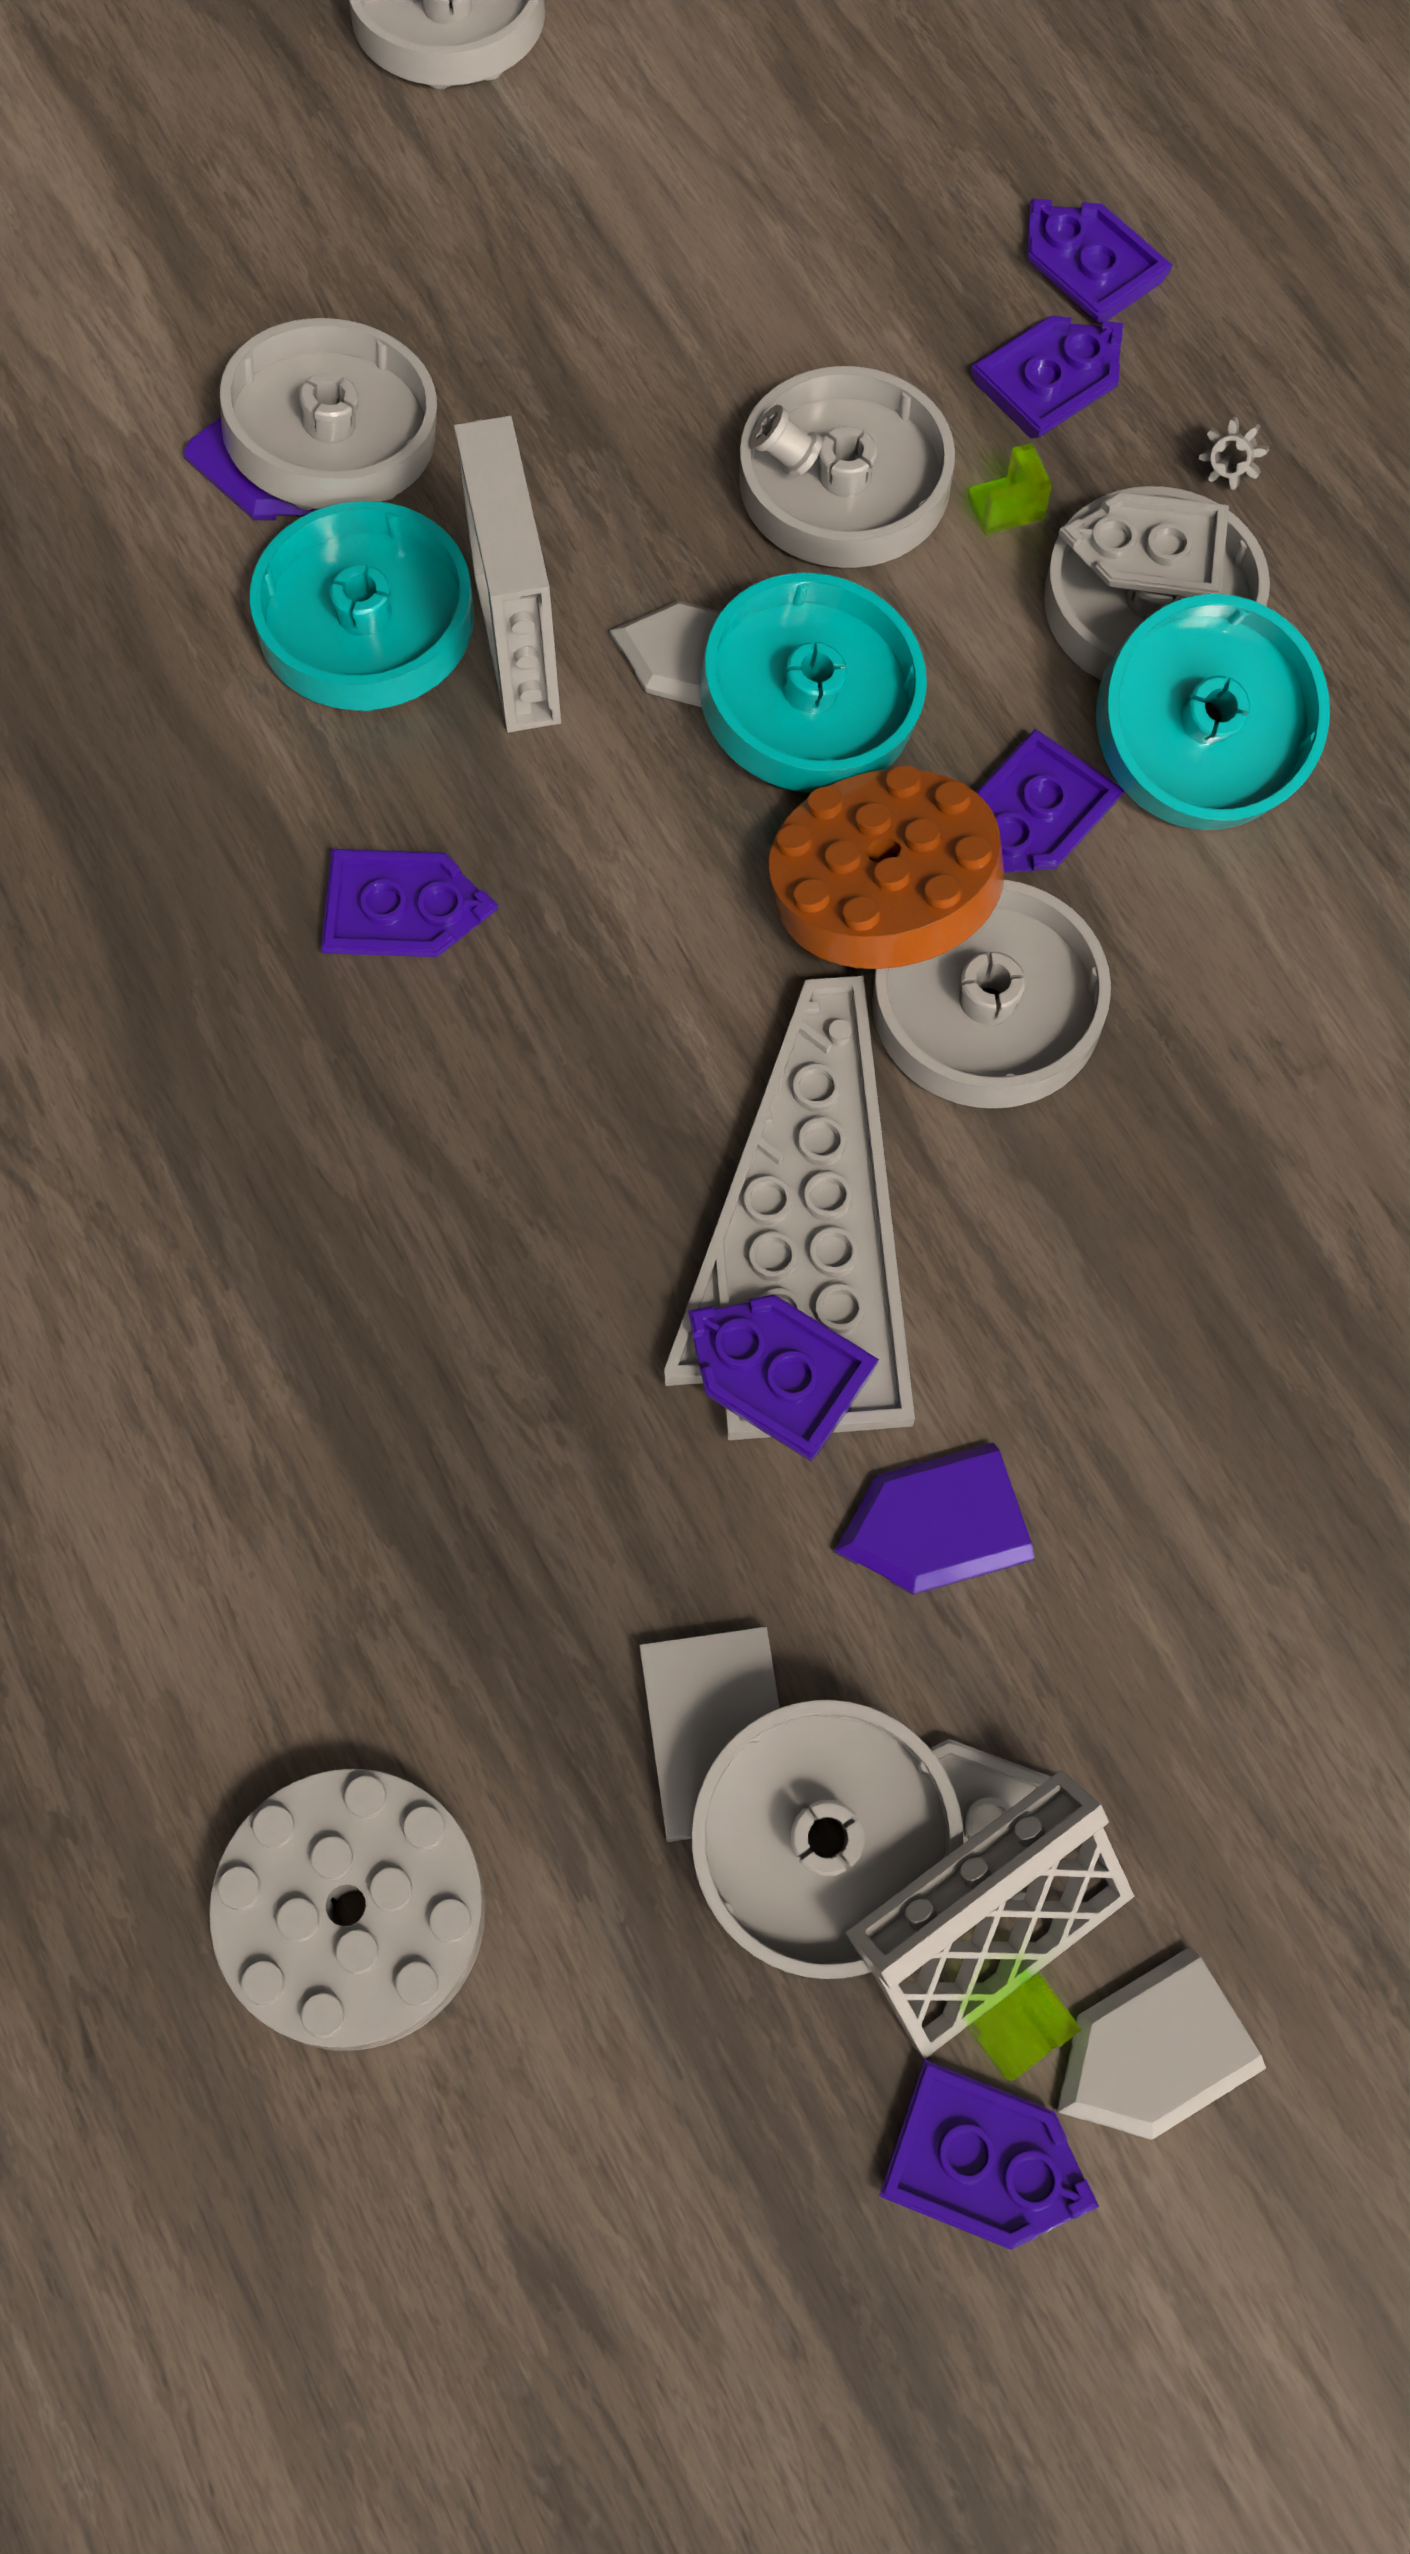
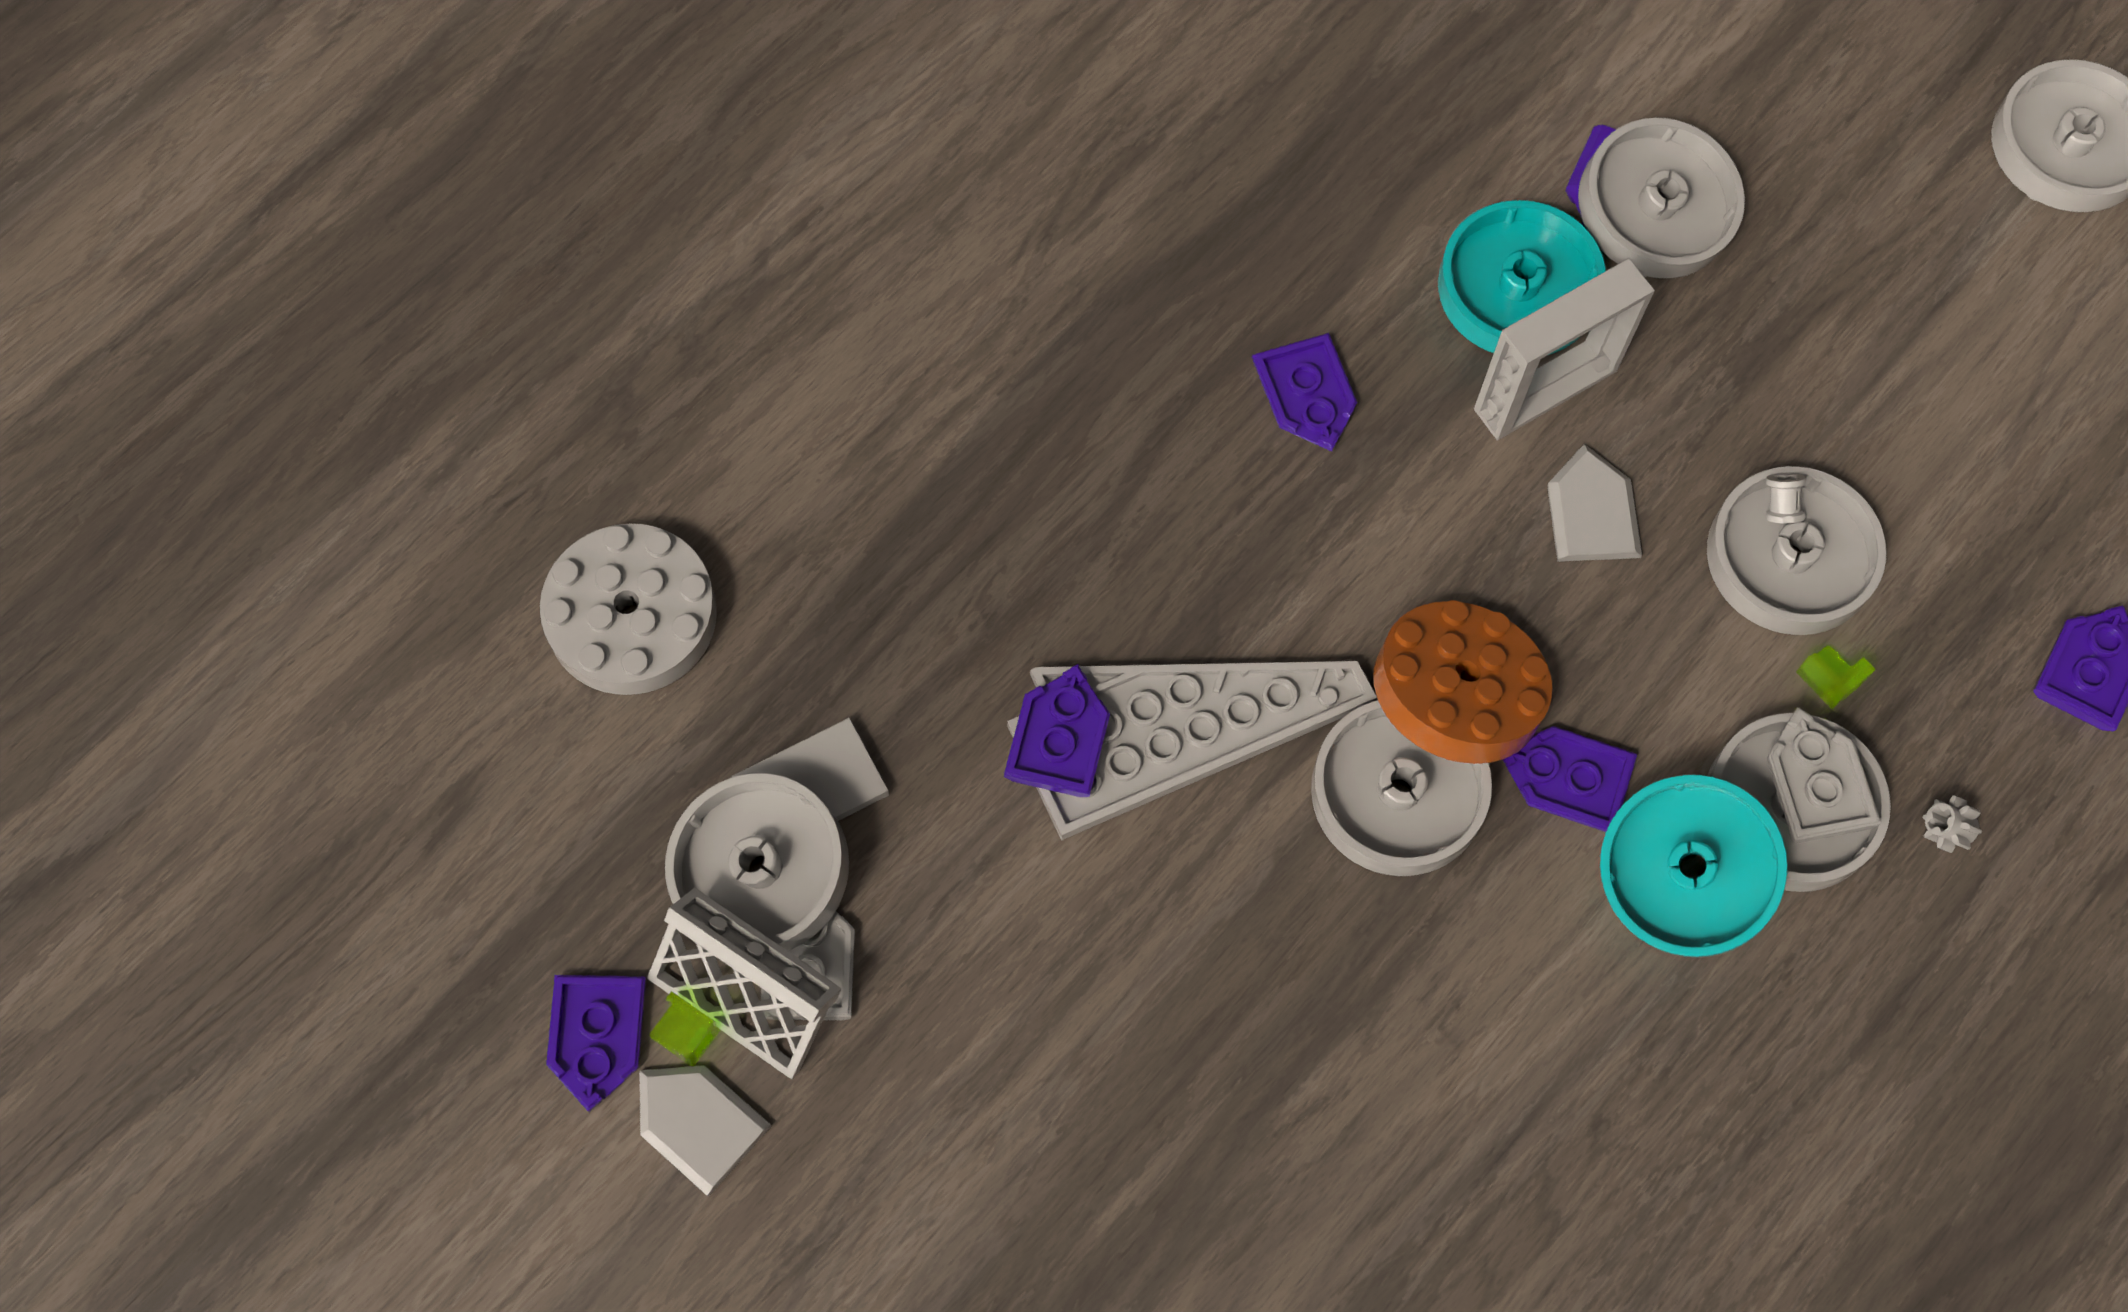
camera: 70 degrees right, 0 degrees up
(762, 691) = (1624, 554): teal piece -> none
(939, 1522) = (1001, 879): dark purple tile -> none
(1051, 372) = (1968, 673): dark purple tile -> none

